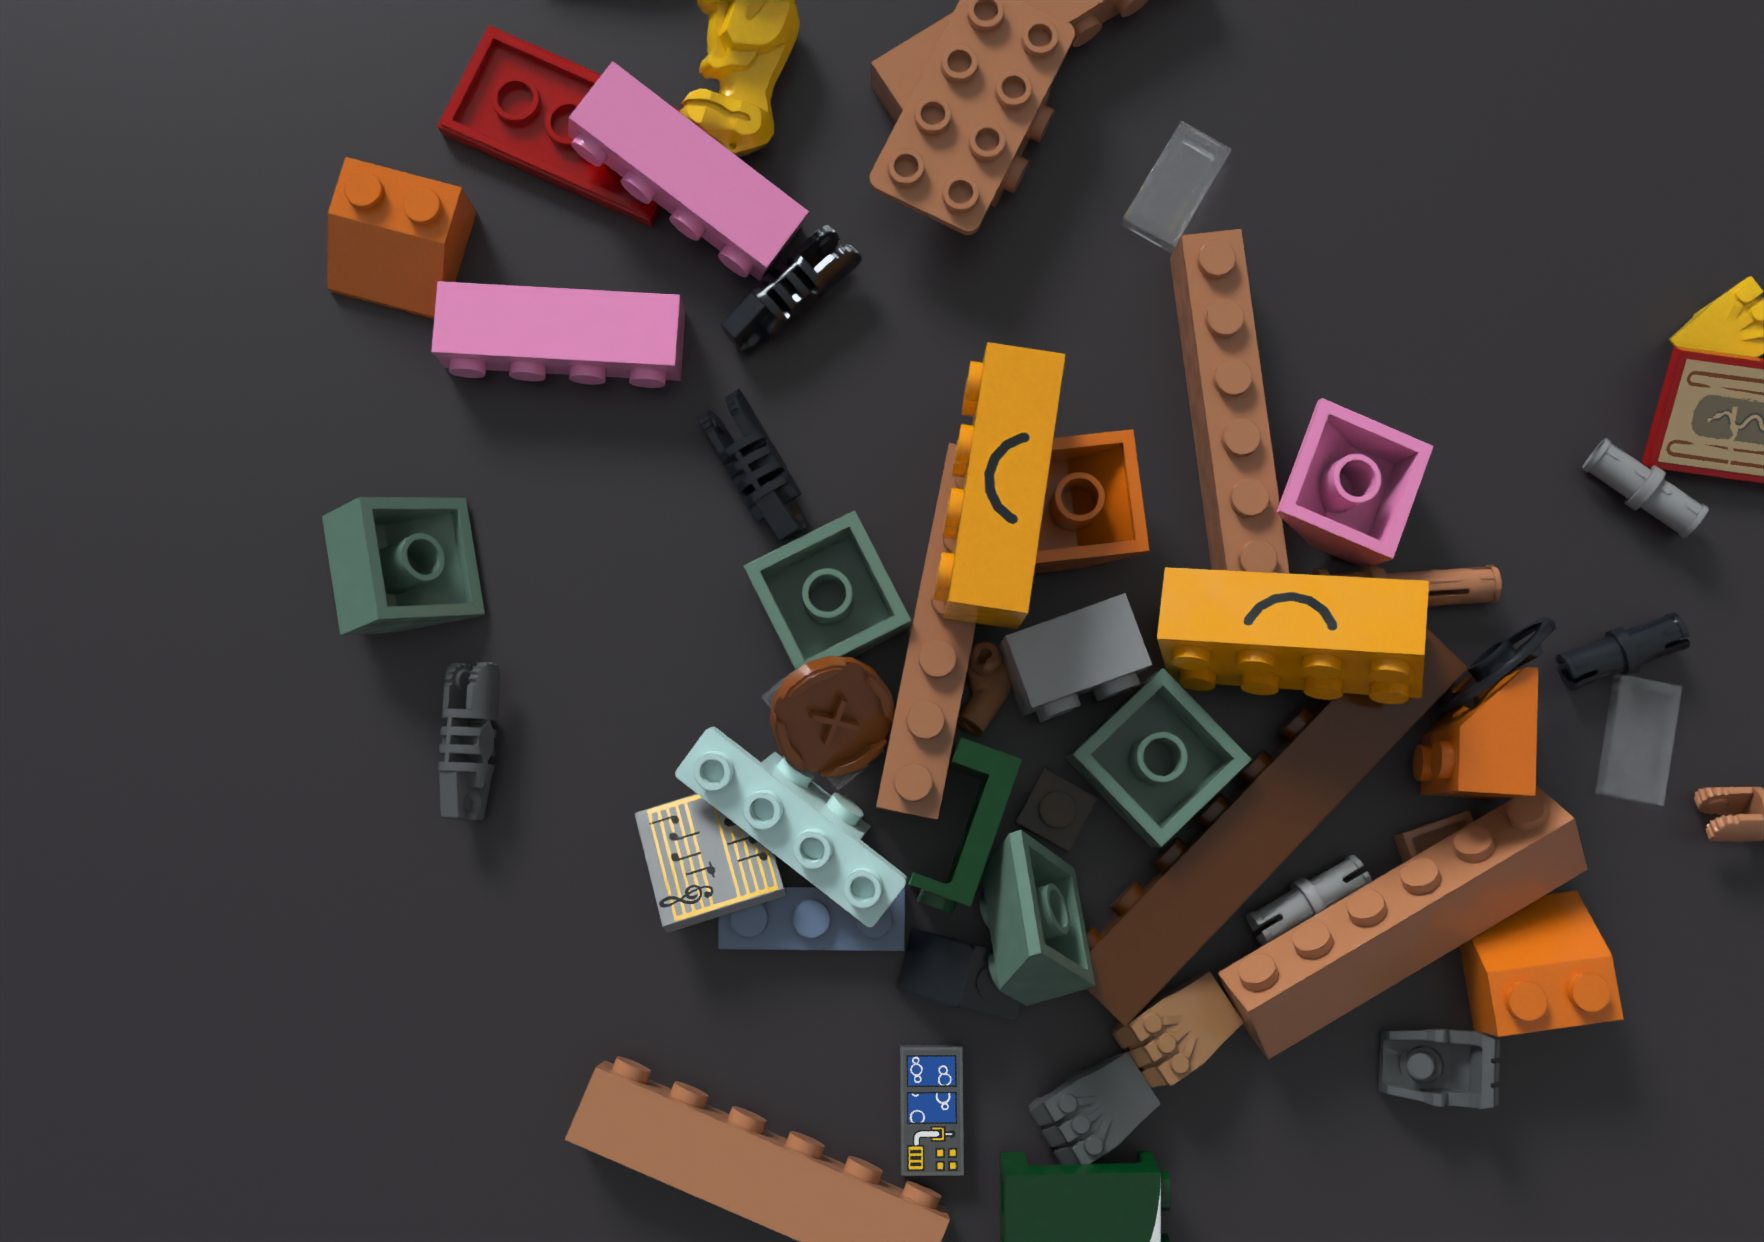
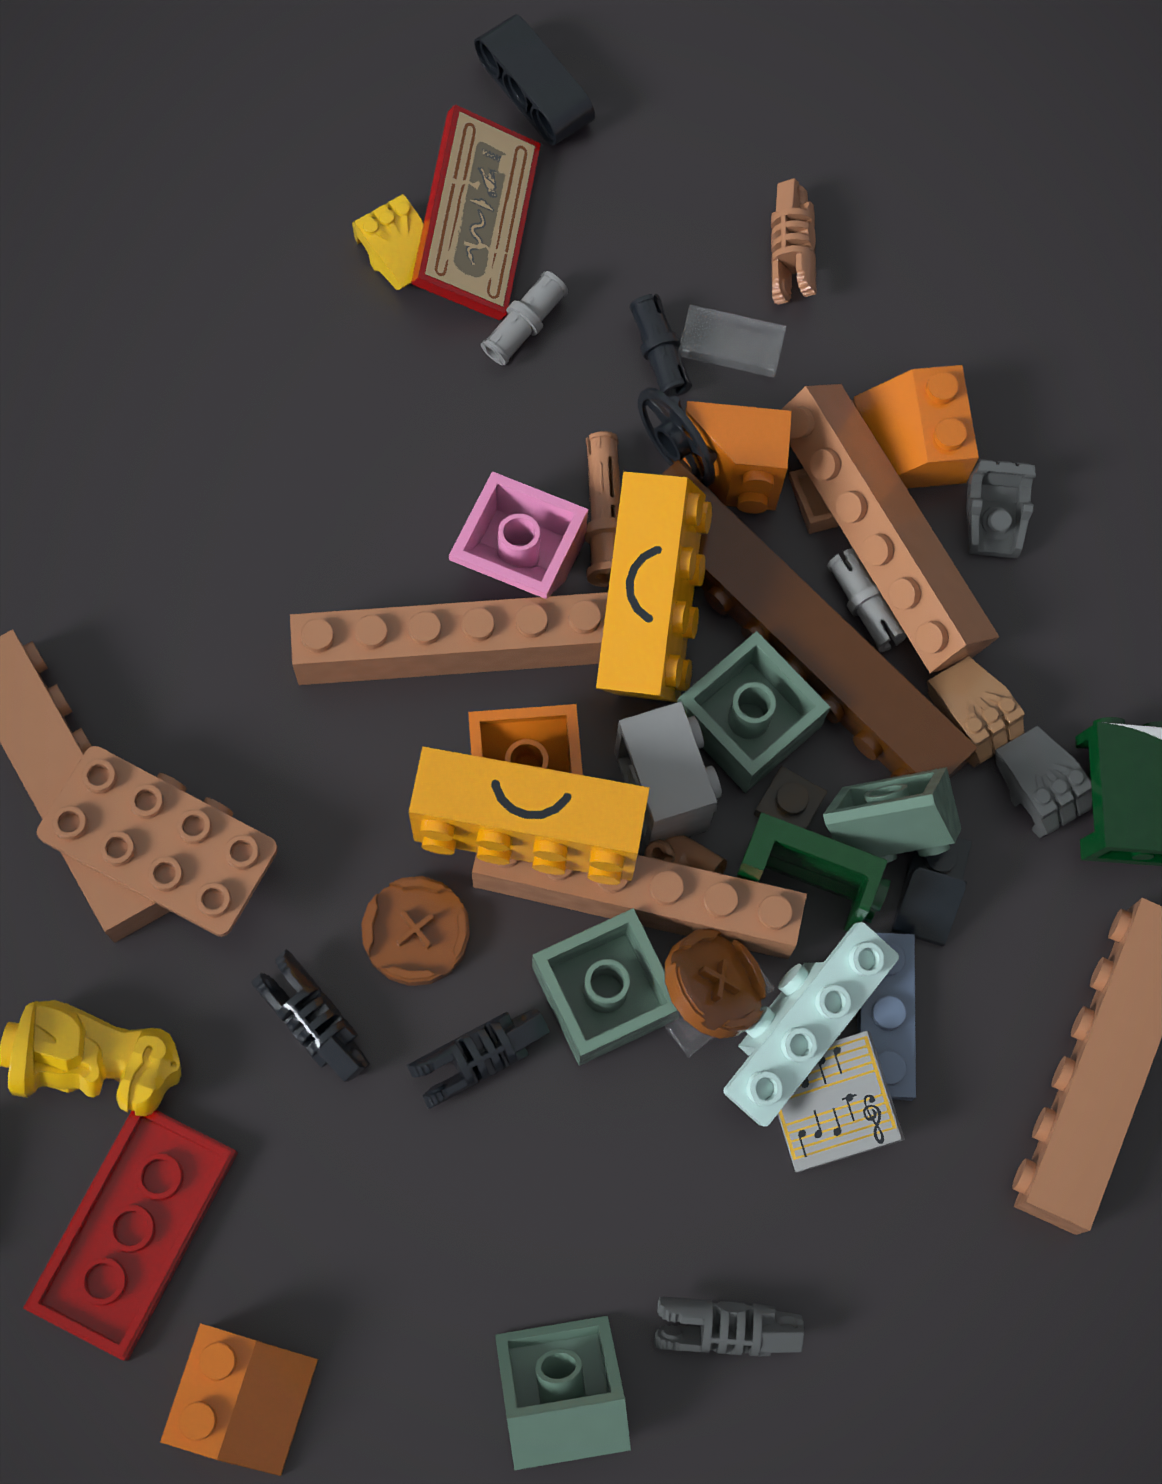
camera: 90 degrees left, 10 degrees down
(559, 333) = (342, 1236): bright pink brick -> none
(684, 172) = (197, 1108): bright pink brick -> none
(892, 396) = (415, 931): none -> dark orange tile
(931, 1110) = (1047, 917): tile -> none
(1176, 186) = (235, 674): clear tile -> none

